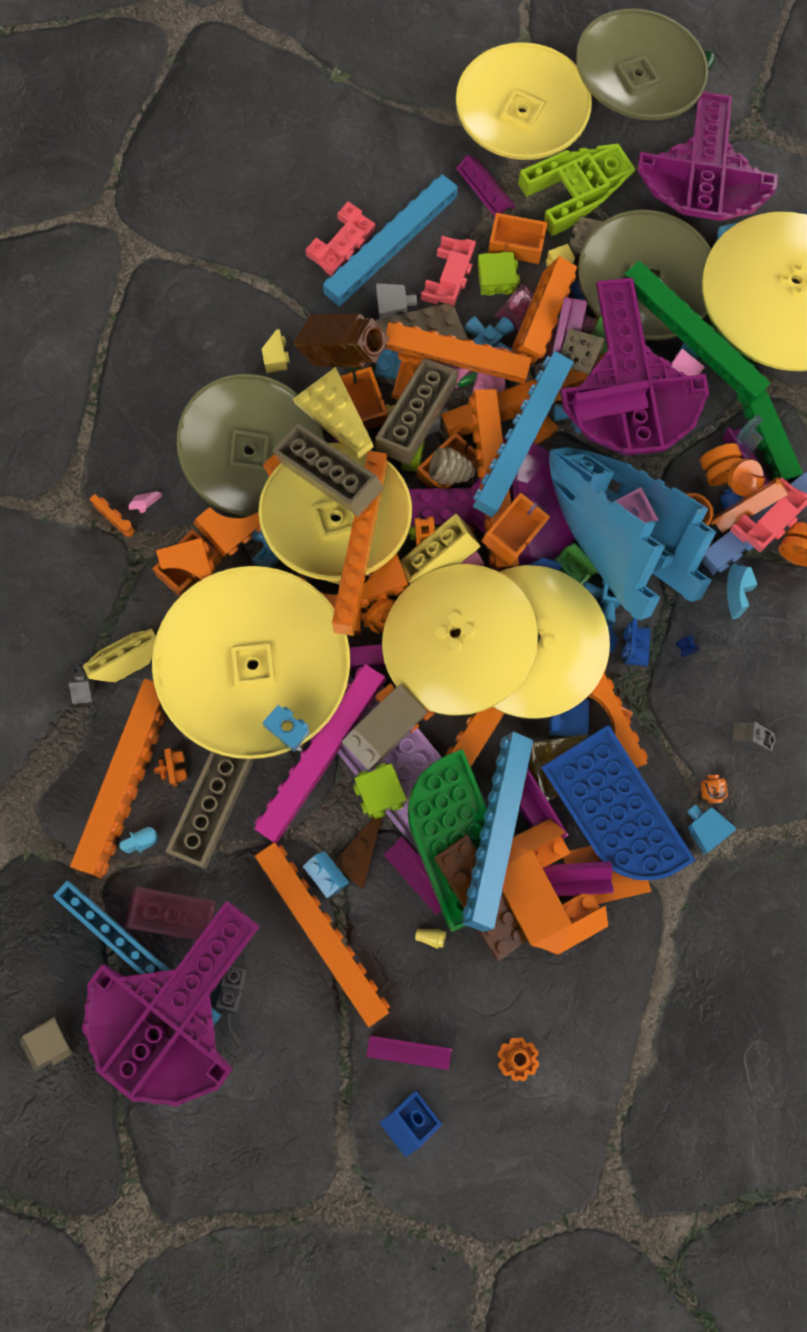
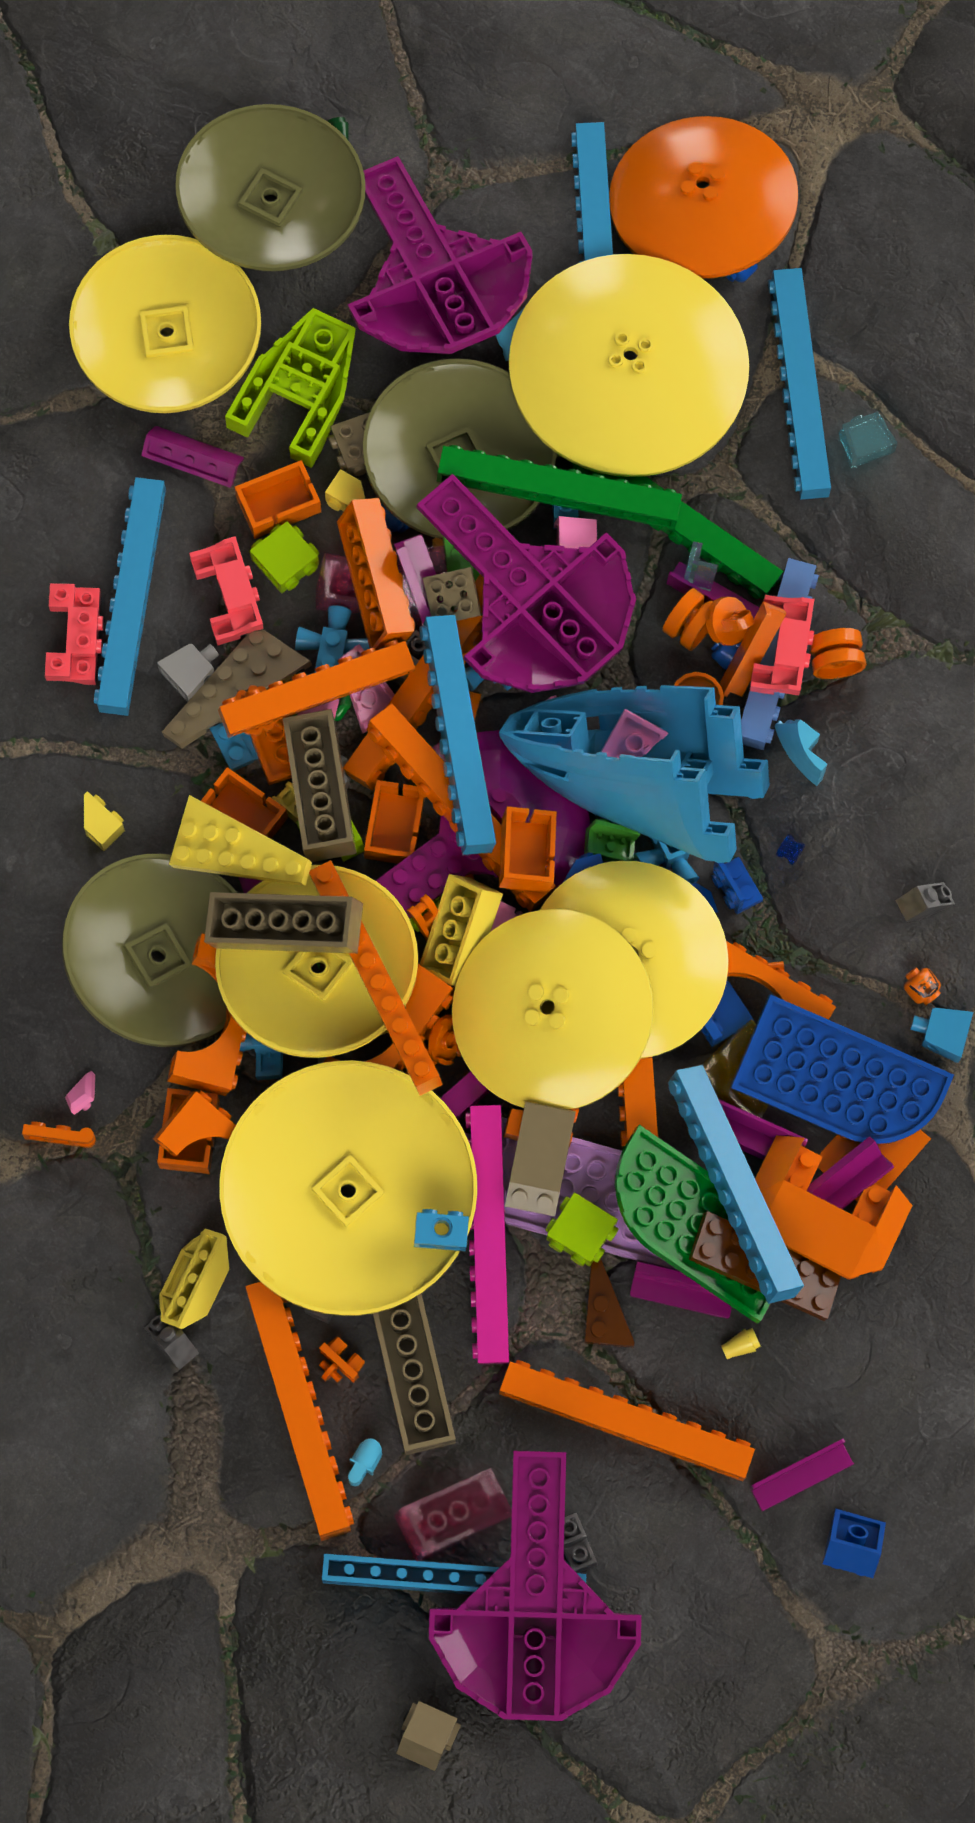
camera: 35 degrees left, 0 degrees up
(325, 874) = (587, 1356): dark azure brick -> none
(341, 340) = (175, 761): reddish brown piece -> none
(450, 467) = (403, 826): dark tan piece -> none
(518, 1059) = (915, 1403): orange plant -> none
(610, 401) = (528, 635): magenta panel -> none

